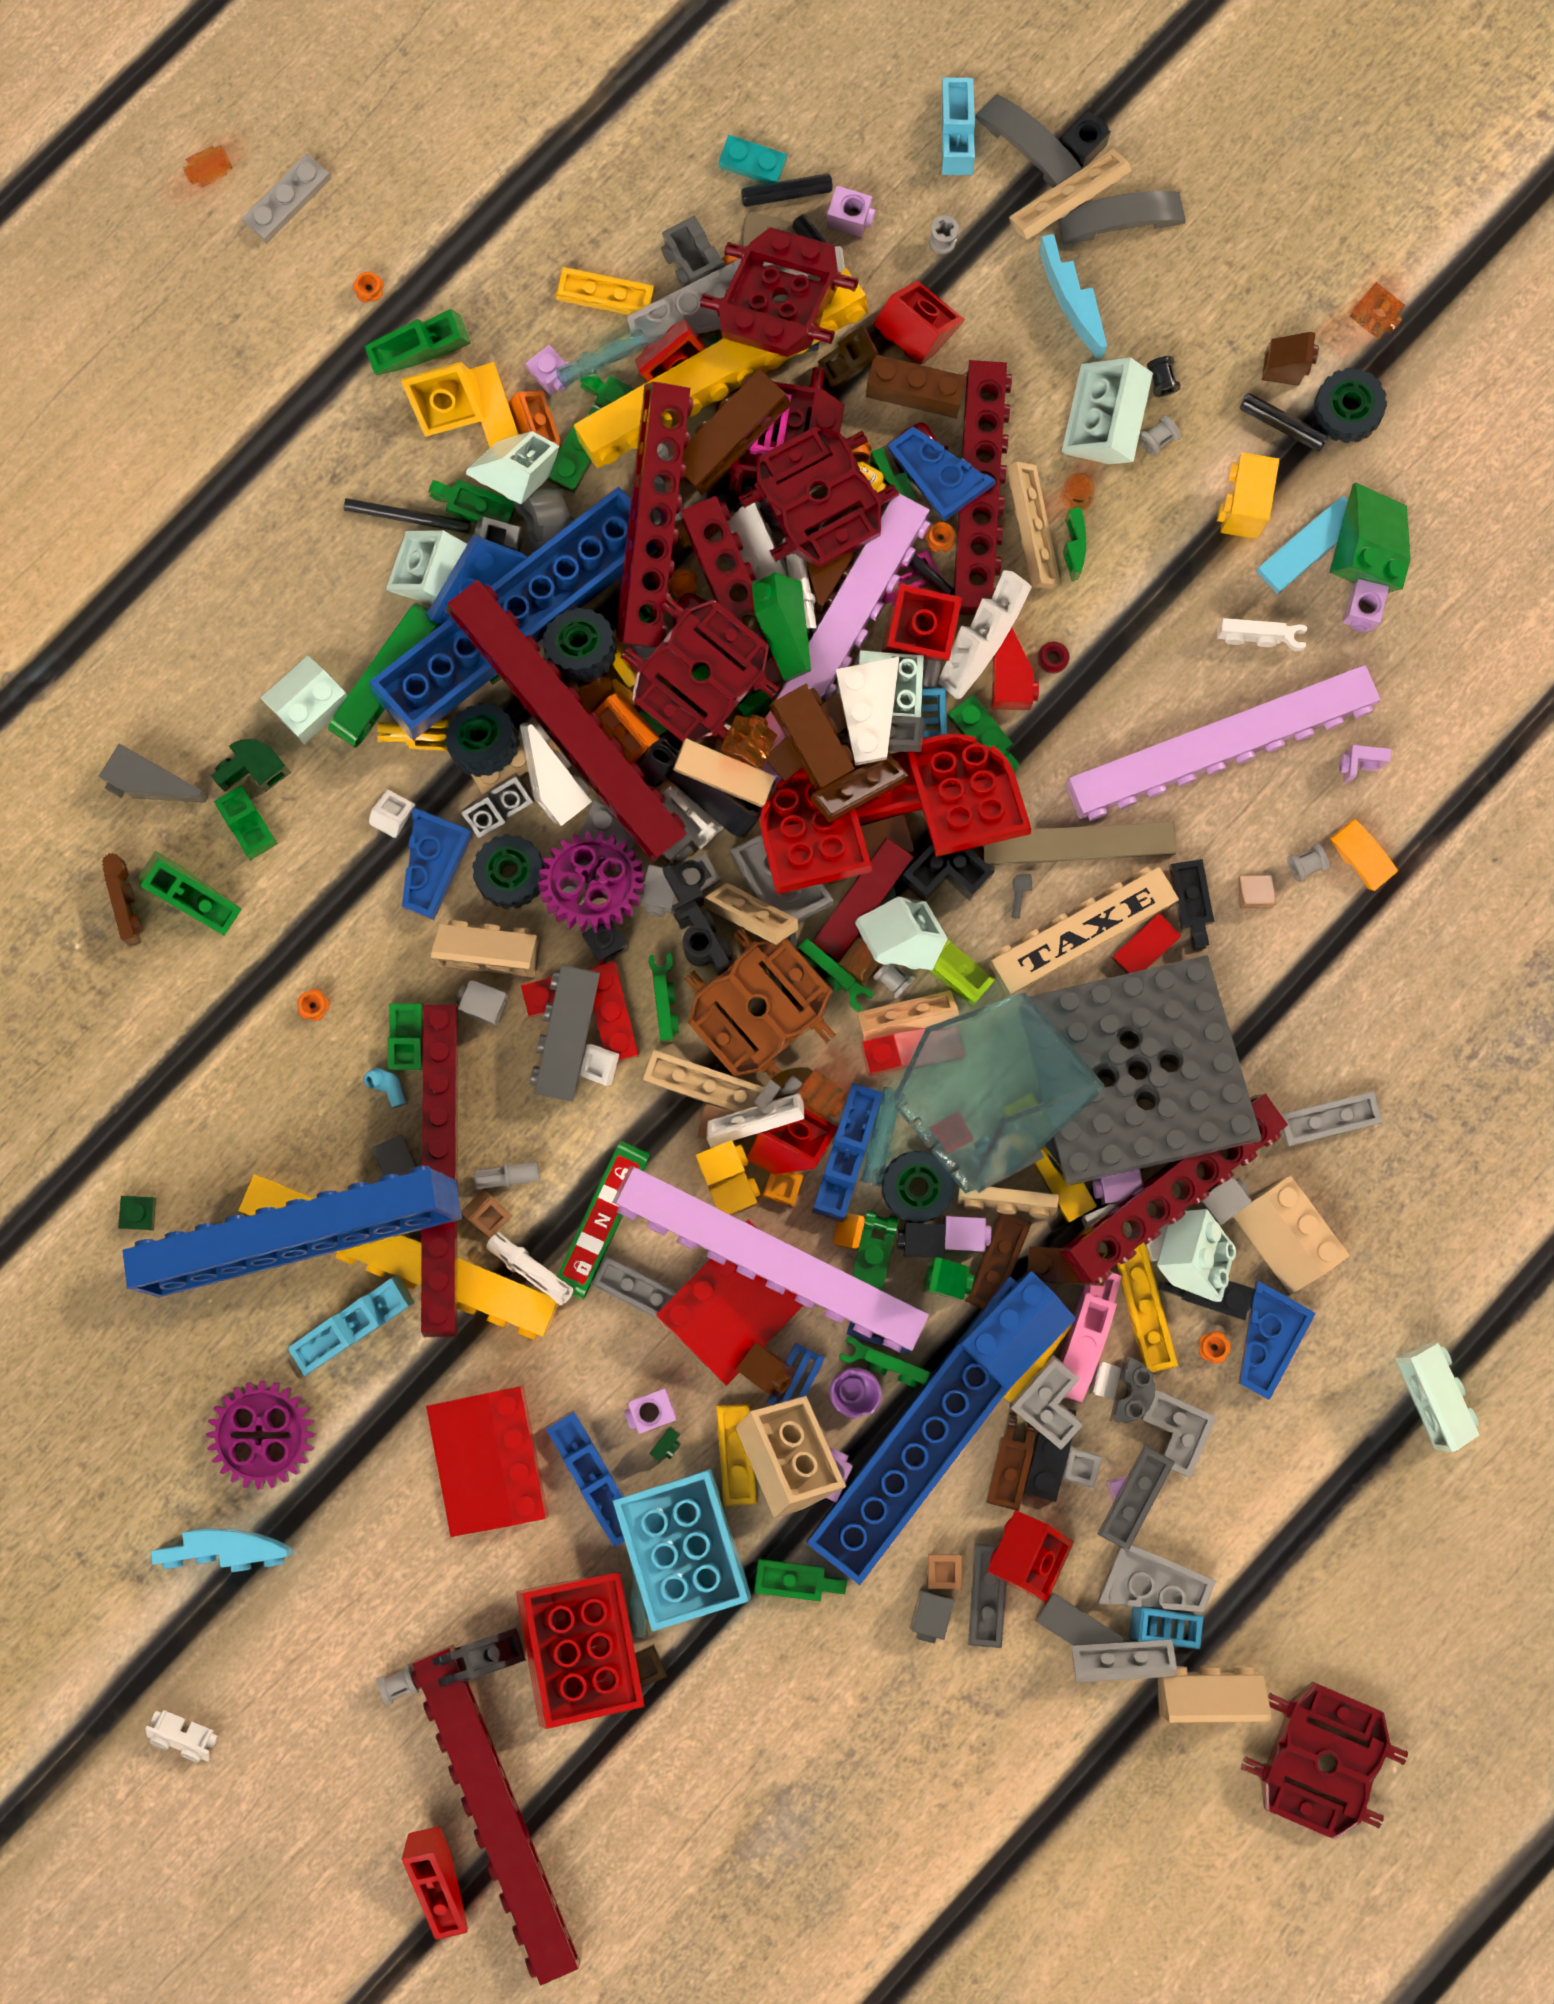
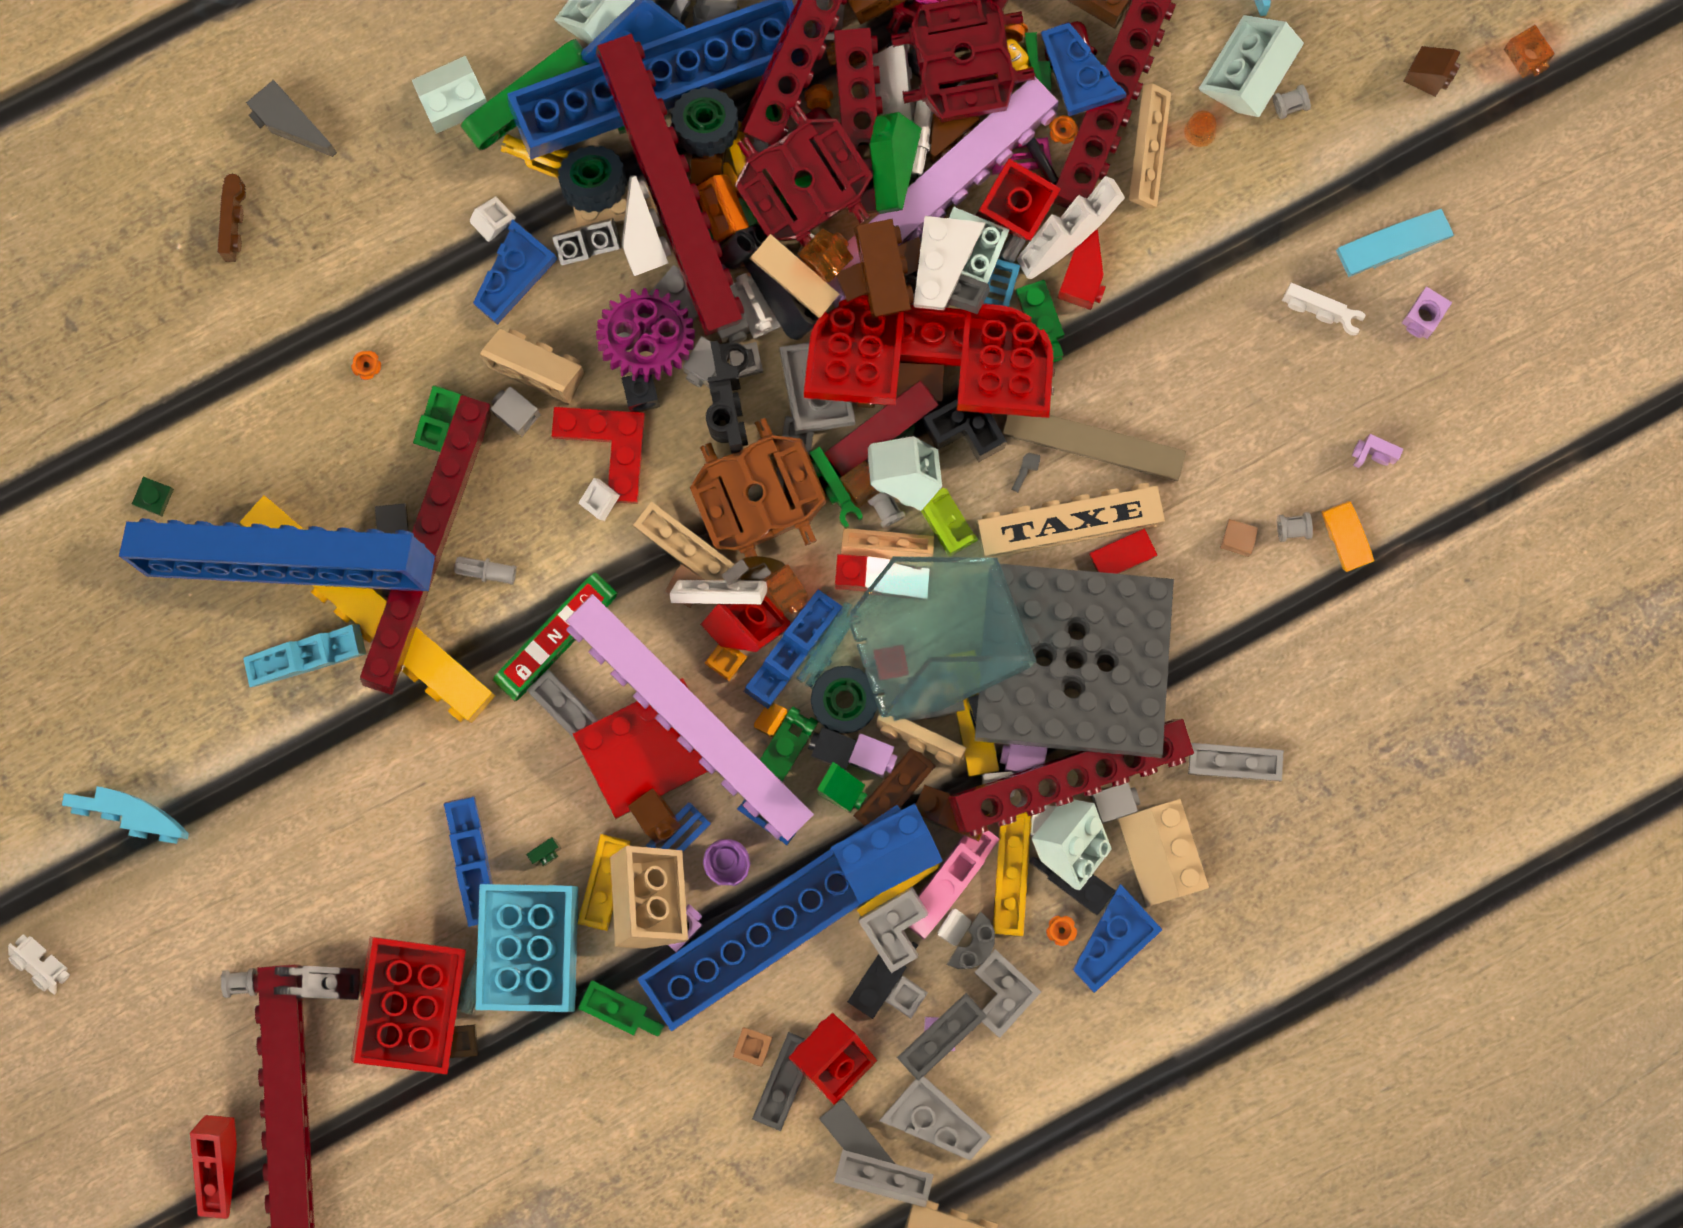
camera: 25 degrees right, 0 degrees up
(188, 893) = (290, 231): green slope -> none
(245, 822) = (361, 185): green slope -> none
(252, 758) = (387, 132): dark green brick -> none
(261, 1405) = (185, 750): magenta gear -> none
(387, 1083) = (408, 454): medium azure arm -> none
(486, 1214) = (456, 598): medium nougat slope -> none
(487, 1461) = (384, 814): red slope -> none
(495, 857) = (568, 287): black wheel -> none
(519, 1261) = (470, 648): white pin -> none
(566, 1032) = (579, 460): dark grey brick -> none
(661, 1400) = (554, 823): lavender brick -> none
(664, 994) = (676, 457): green plate -> none
(727, 1179) = (676, 635): yellow brick -> none
(751, 913) = (777, 408): tan plate -> none
(755, 704) = (844, 225): dark green plate -> none
(858, 787) = (910, 327): reddish brown tile -> none
(881, 1362) = (759, 844): green plate -> none
(931, 1616) = (727, 1081): dark grey brick -> none
(1011, 1467) = (843, 975): reddish brown hinge -> none
(1053, 648) = (1134, 263): dark red plate -> none
(1075, 551) = (1180, 178): green slope -> none
(1145, 1627) = (910, 1150): dark azure slope -> none
(1163, 376) = (1313, 49): black bush -> none
(1194, 900) = (1178, 526): black plate -> none
(1223, 742) = (1254, 395): lavender brick -> none
(1251, 496) = (1348, 188): yellow brick -> none
(1284, 422) = (1409, 125): black axle -> none
(1354, 387) = (1481, 112): black wheel -> none
(1373, 540) = (1453, 256): green slope -> none
(1438, 1397) = (1248, 1041): light aqua slope -> none

